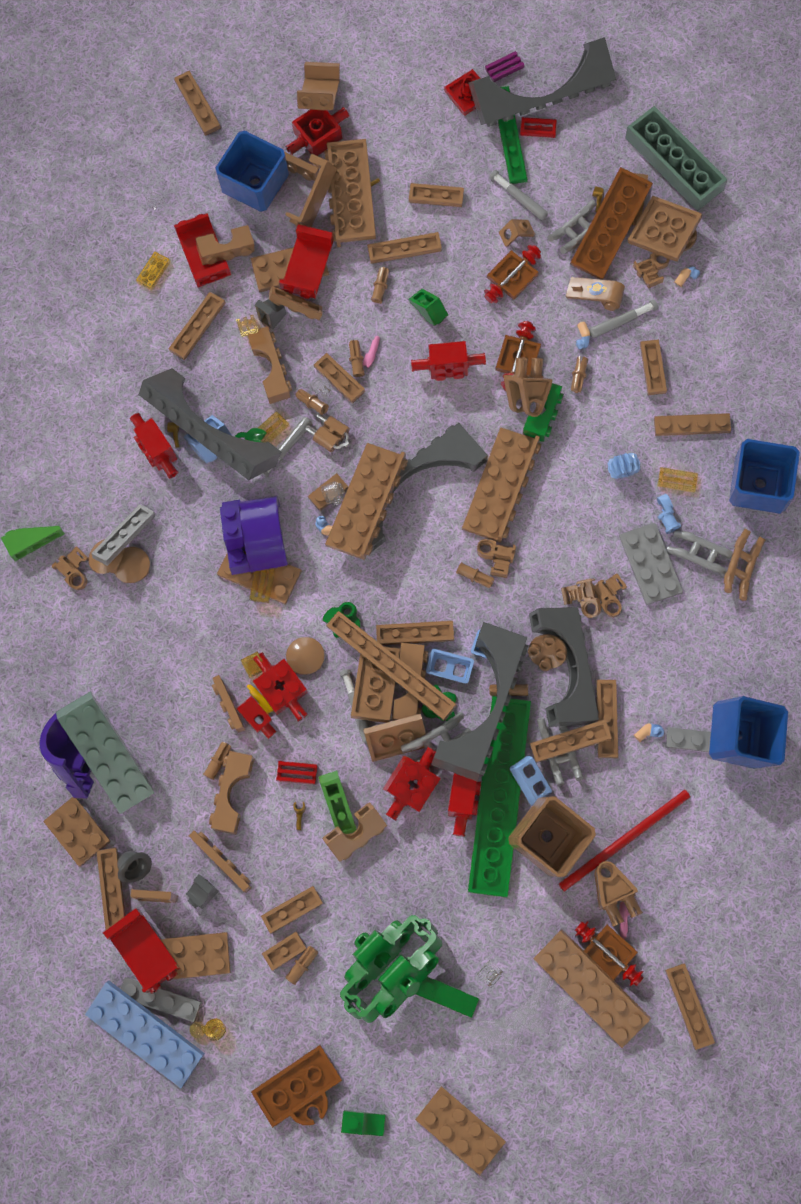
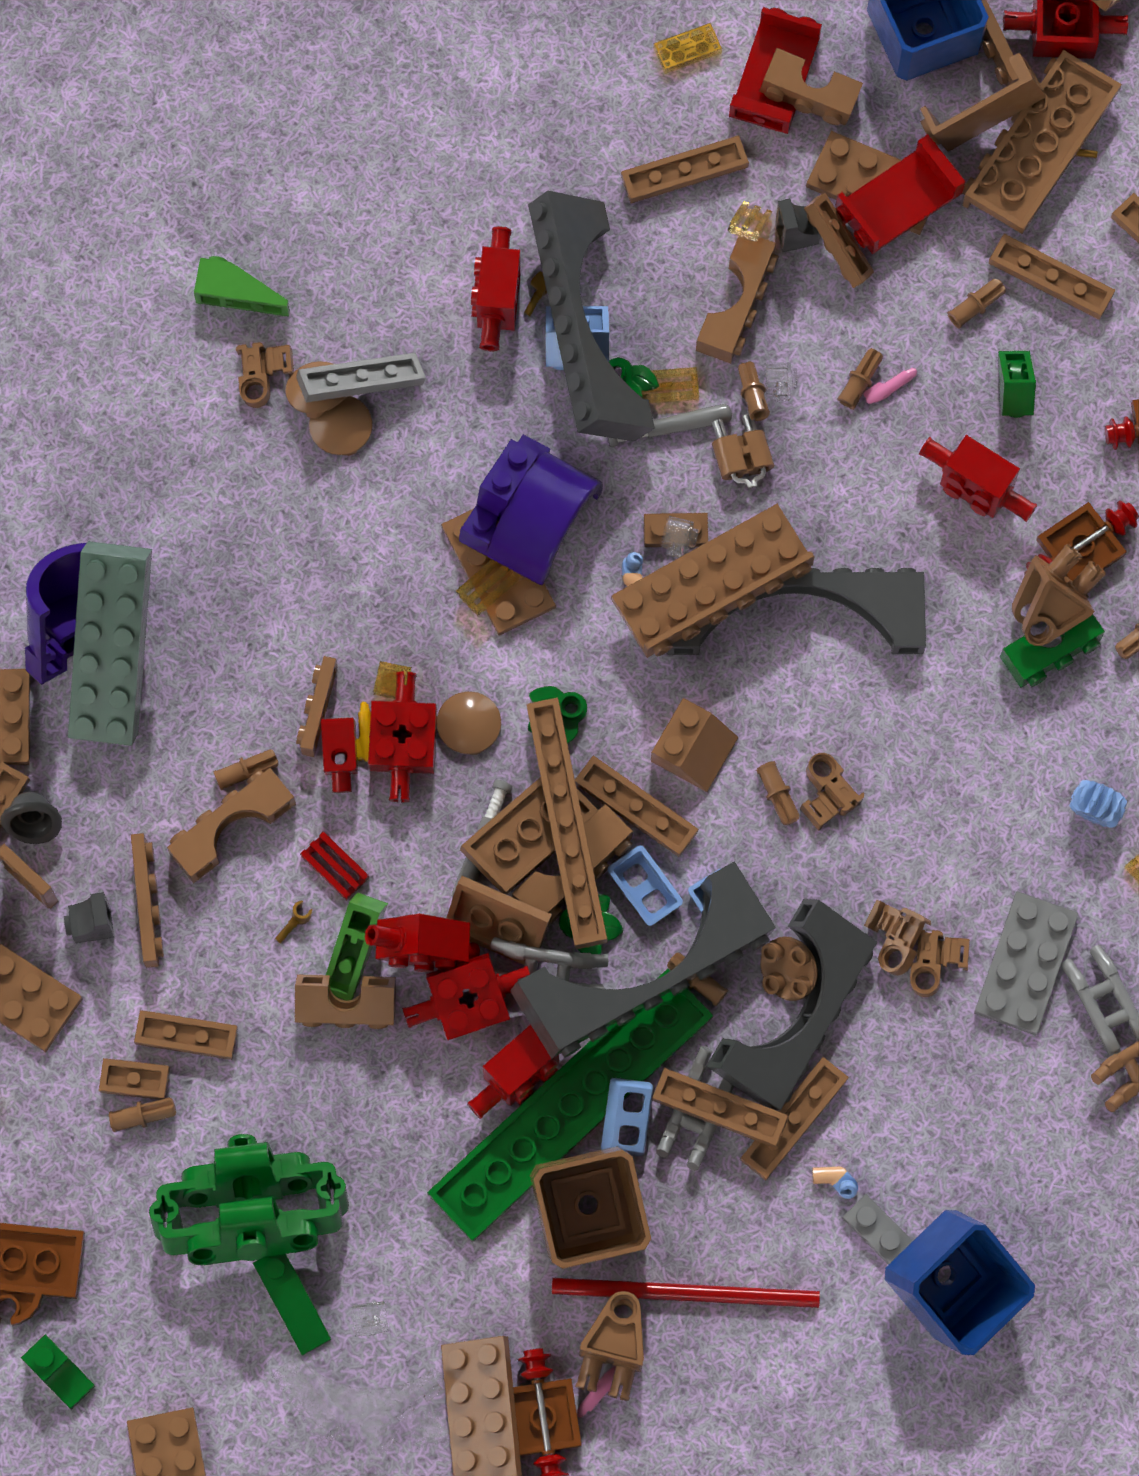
camera: 30 degrees right, 0 degrees up
(339, 378) = (816, 387): medium nougat plate -> none
(370, 775) = (422, 942): none -> red brick
(418, 583) = (694, 745): none -> medium nougat slope
(501, 485) = (914, 701): medium nougat bracket -> none
(667, 516) = (1101, 918): light blue connector -> none

